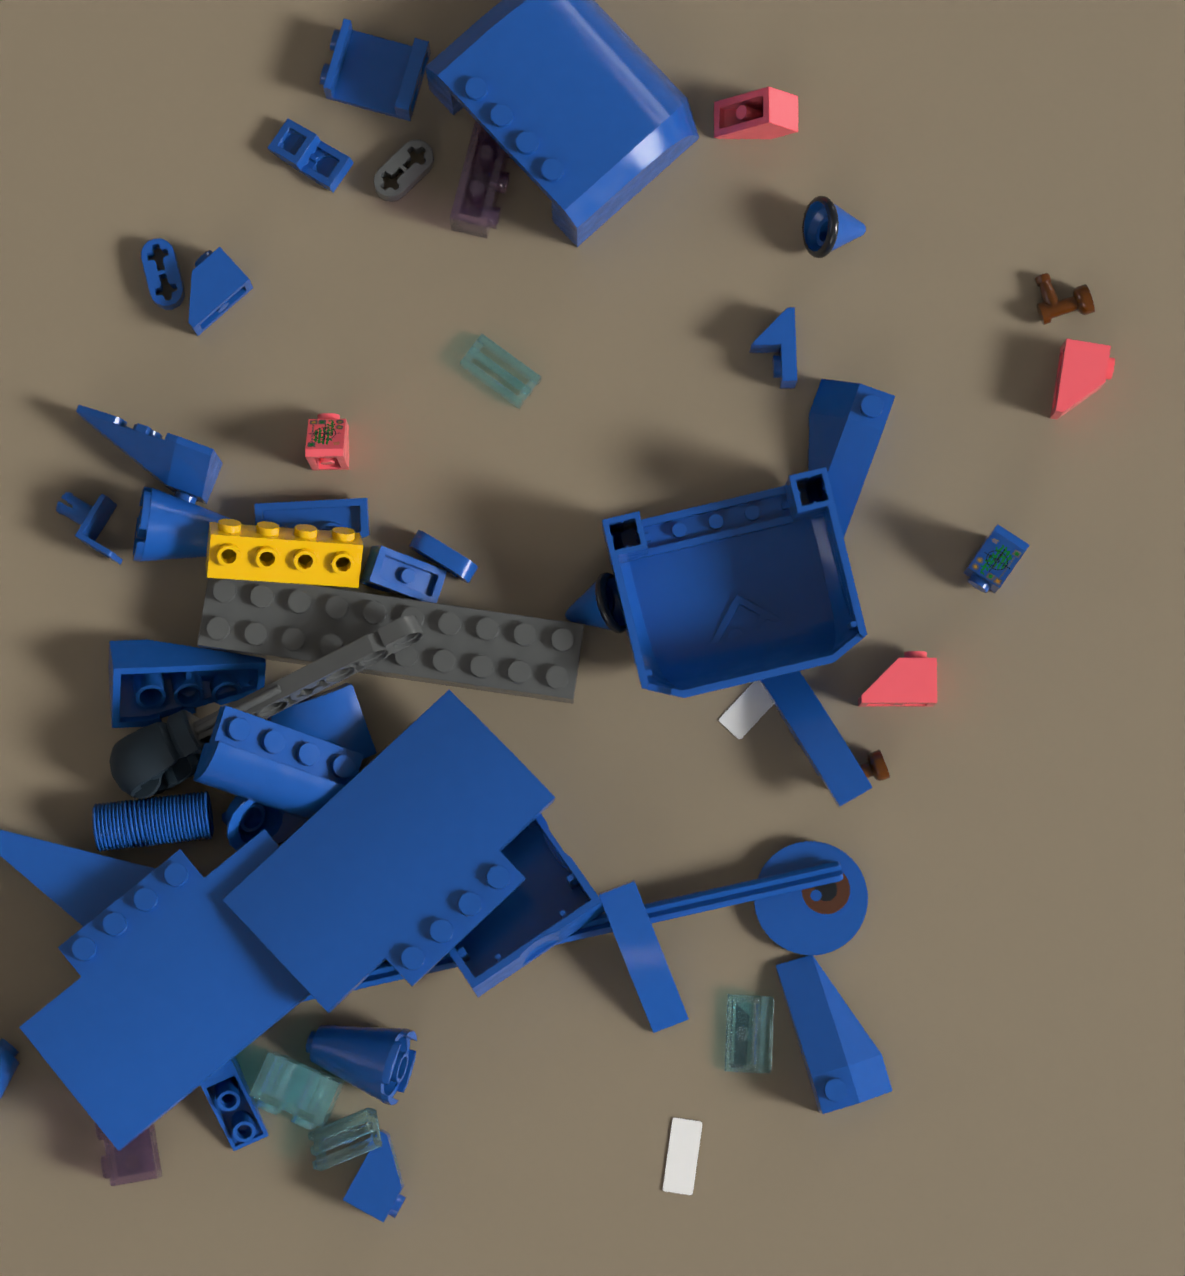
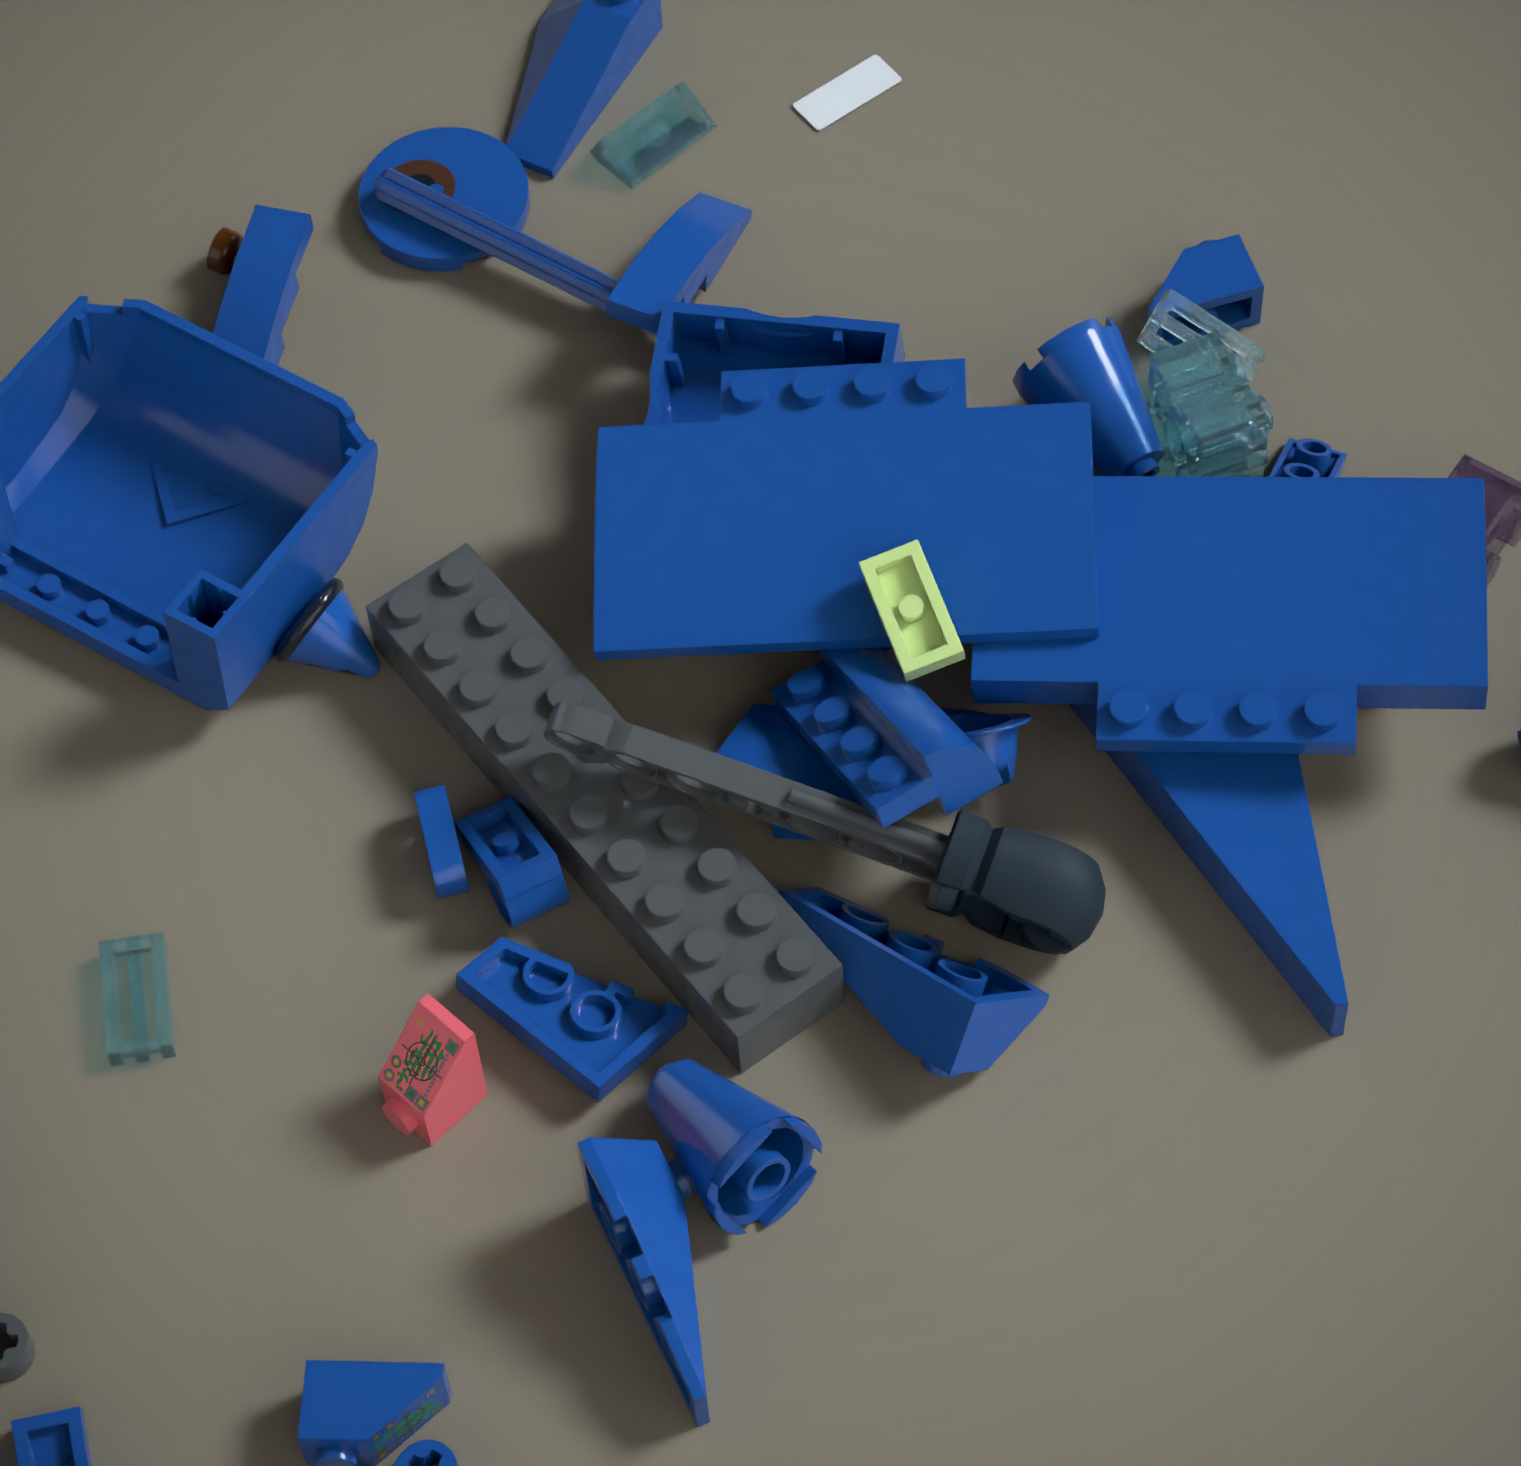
camera: 130 degrees left, 25 degrees down
(91, 520) = (827, 1259): blue bracket -> none
(164, 821) = (1153, 866): blue piece -> none
(284, 554) = (628, 978): yellow brick -> none
(309, 826) = (912, 610): none -> yellowish green plate
(905, 683) = (101, 277): coral slope -> none

